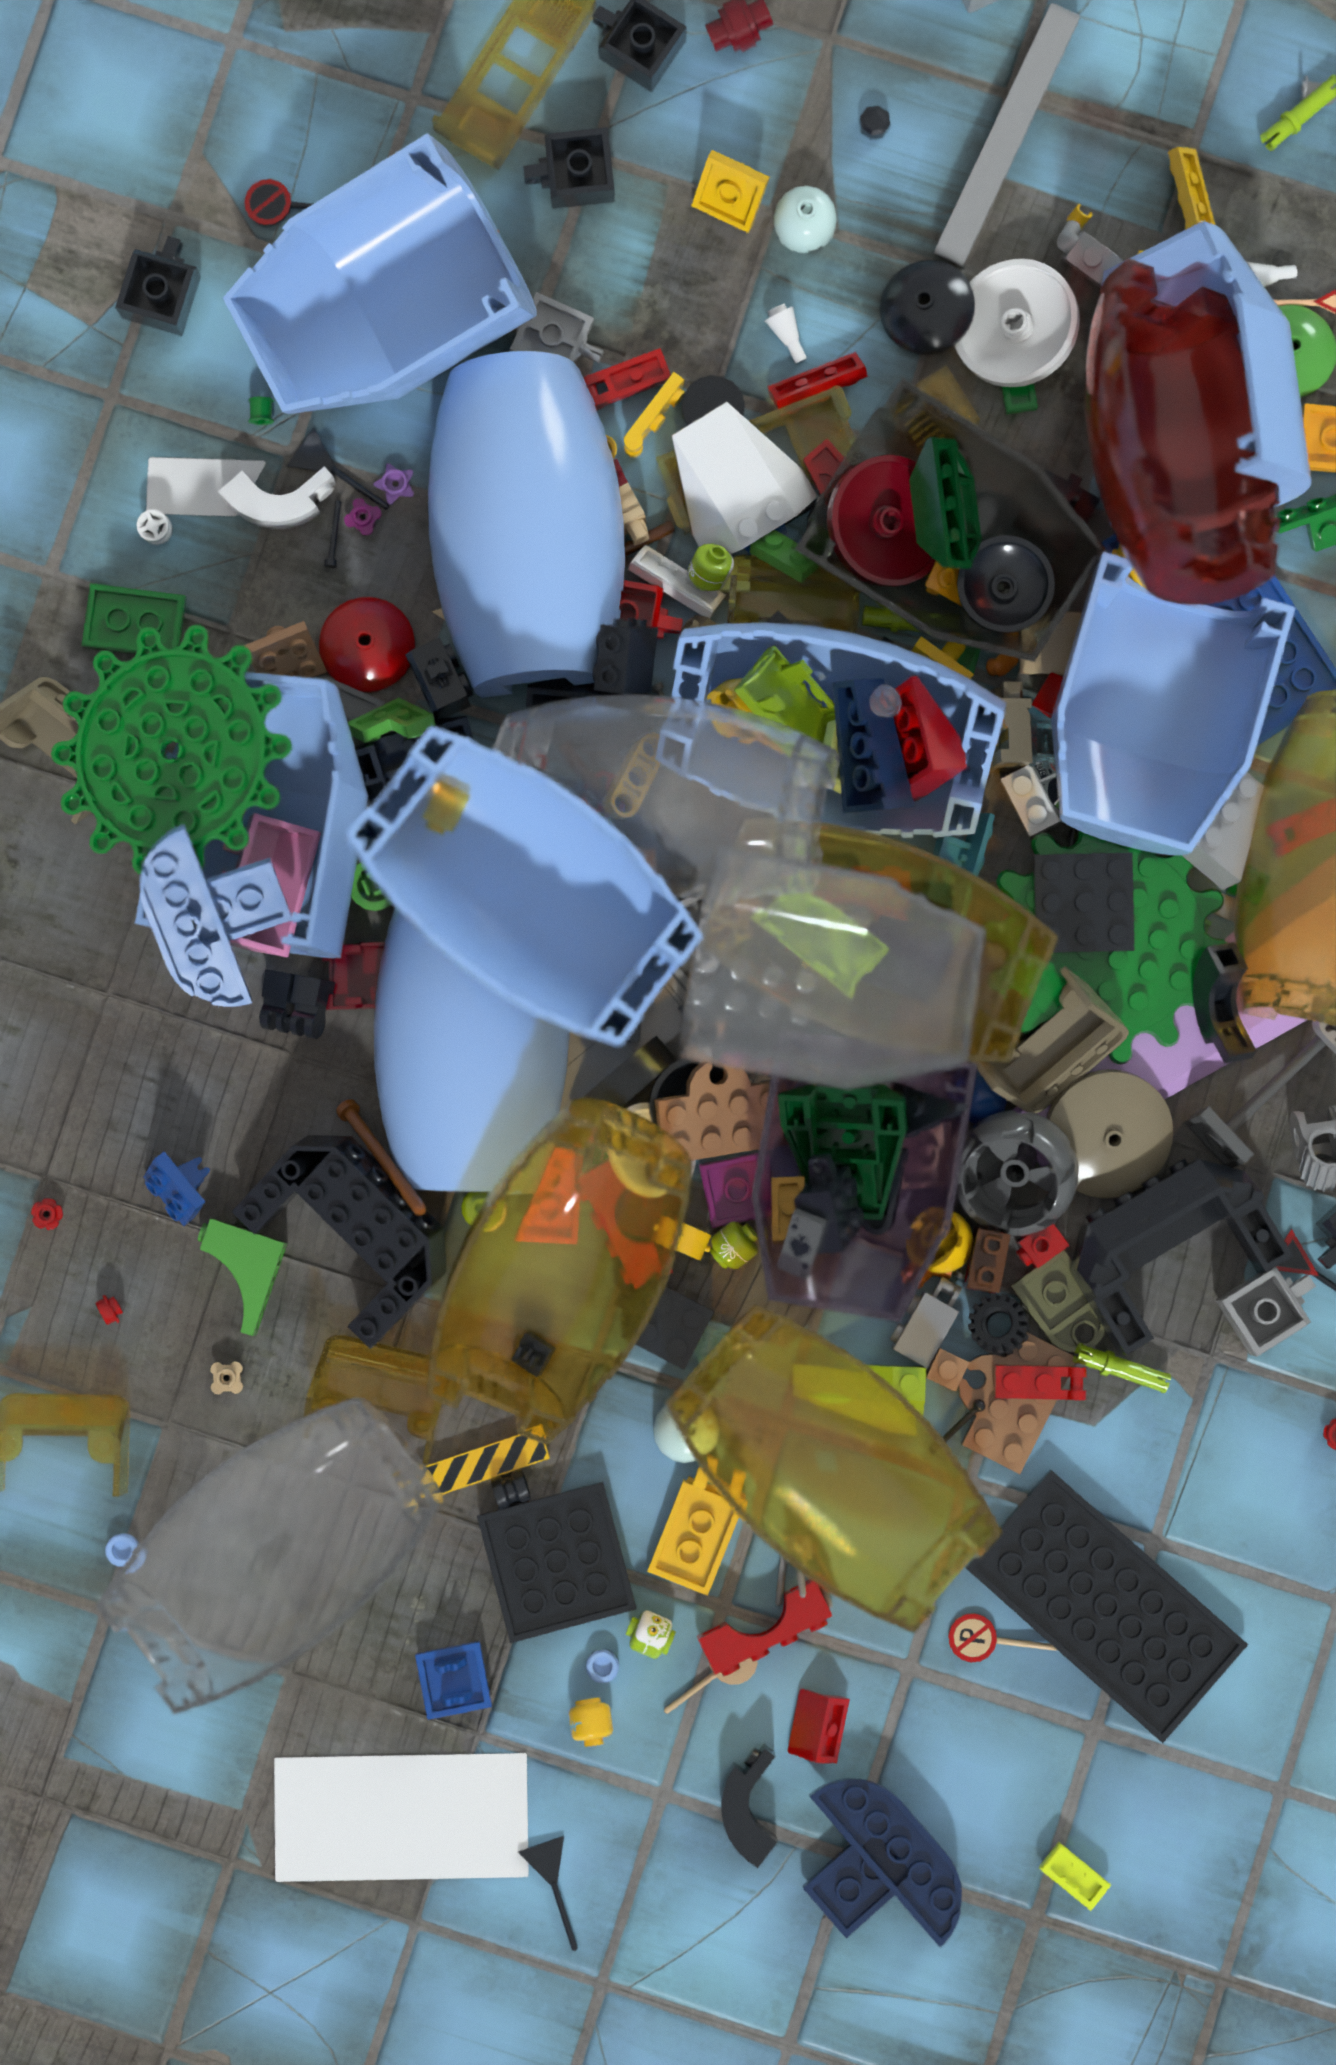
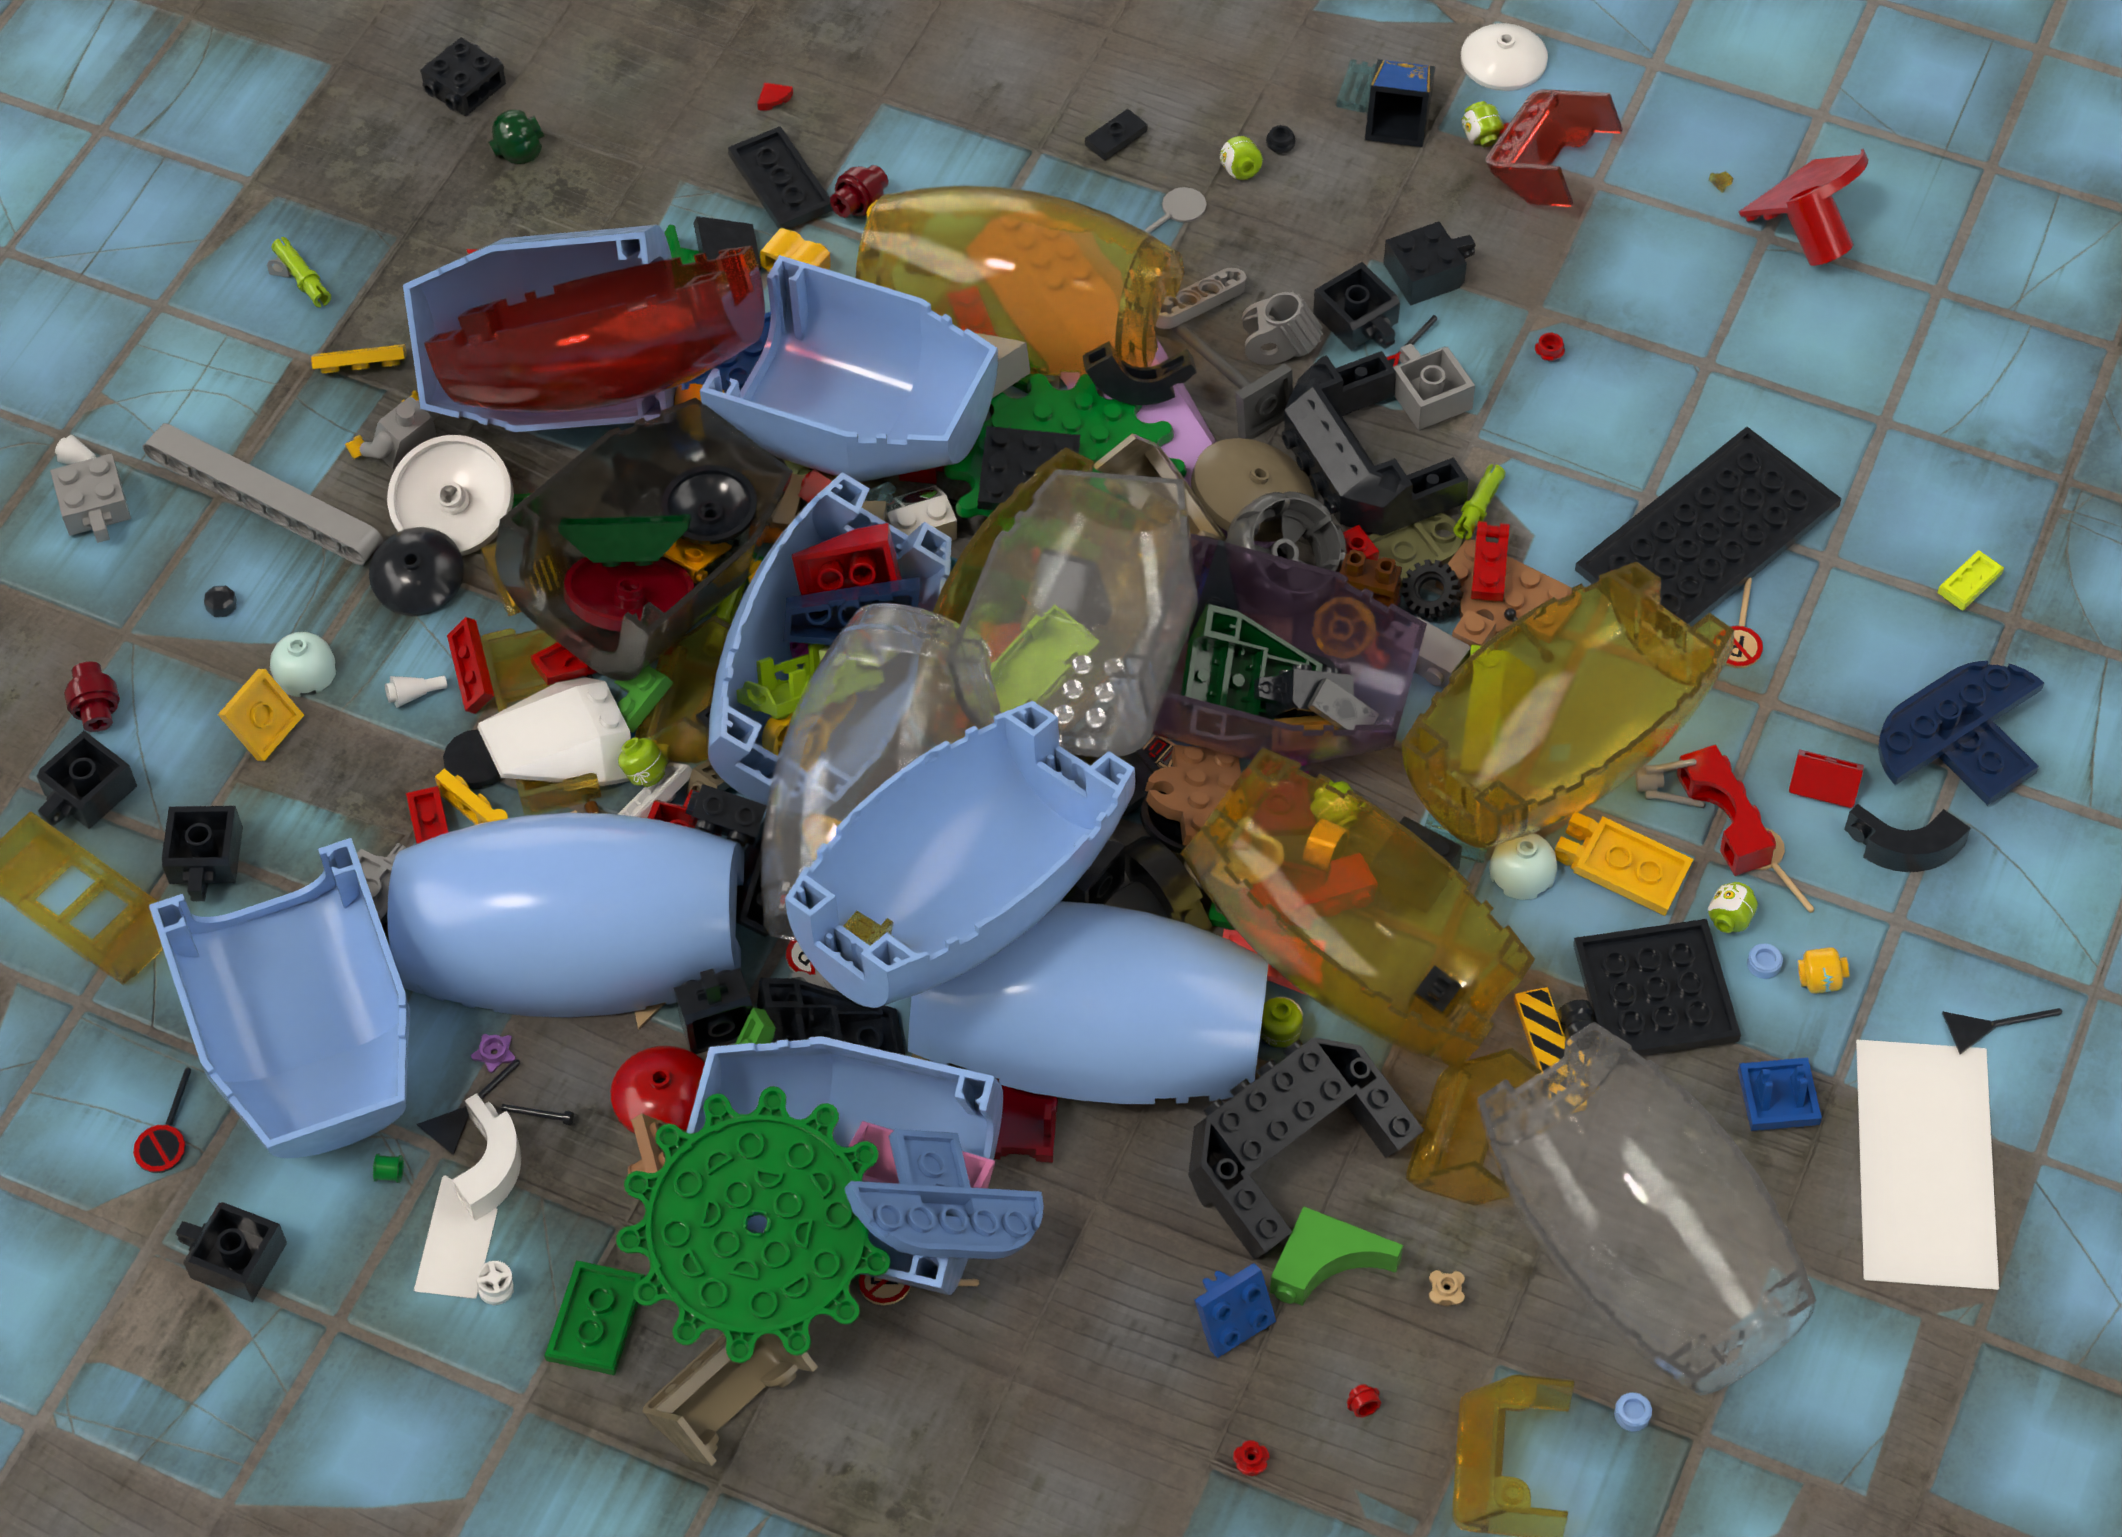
camera: 80 degrees left, 30 degrees down
(287, 990) = (1036, 1162): black legs -> none
(348, 1111) = (1166, 1143): dark orange bar -> none
(364, 526) = (527, 1089): magenta plate -> none
(885, 701) = (811, 588): clear plate -> none

